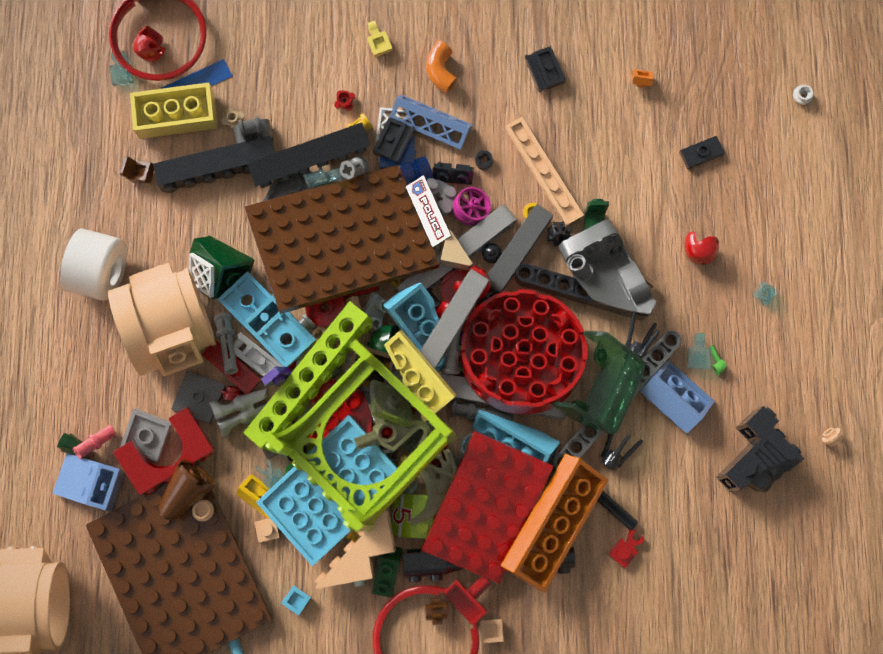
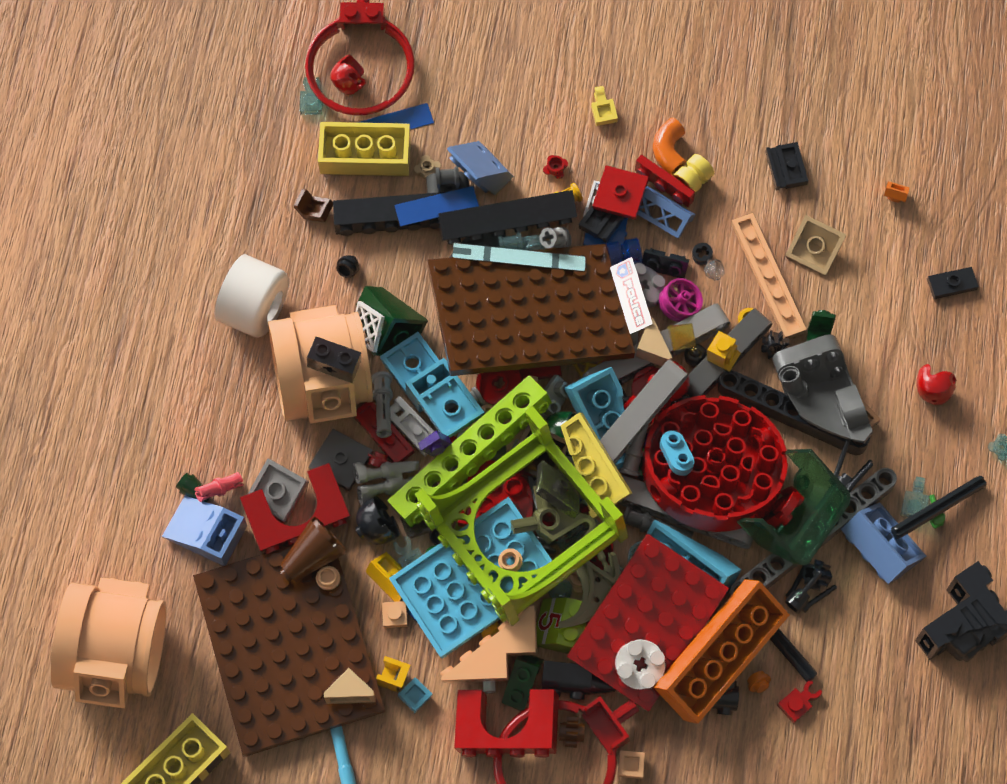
camera: 10 degrees right, 10 degrees down
(170, 322) = (333, 359): none -> black brick
(176, 220) = (347, 266): none -> black plate
(237, 609) = (349, 689): none -> tan slope
(238, 452) = (376, 523): none -> black cylinder
(250, 151) = (429, 207): none -> blue sticker
(274, 587) = (393, 674): none -> yellow window
(277, 111) = (480, 166): none -> medium blue slope
(324, 190) = (518, 257): none -> clear light blue sticker
(352, 473) = (510, 553): none -> light nougat plate
(353, 630) = (536, 738): none -> red arch
(404, 117) = (620, 192): none -> red plate
(441, 99) = (664, 181): none -> red plate
(465, 90) = (695, 173): none -> light yellow wheel
(477, 240) = (681, 336): none -> clear yellow slope
(489, 350) = (676, 450): none -> medium azure plate
(493, 558) = (627, 669): none -> white plate
(496, 173) = (714, 269): none -> clear plate
(516, 249) = (723, 351): none -> yellow window
(580, 137) = (816, 245): none -> tan slope
(588, 382) = (783, 507): none -> red plate
(589, 538) = (758, 682): none -> orange plate
(624, 430) = (811, 569): none -> black gear
(719, 358) = (938, 507): none -> black axle

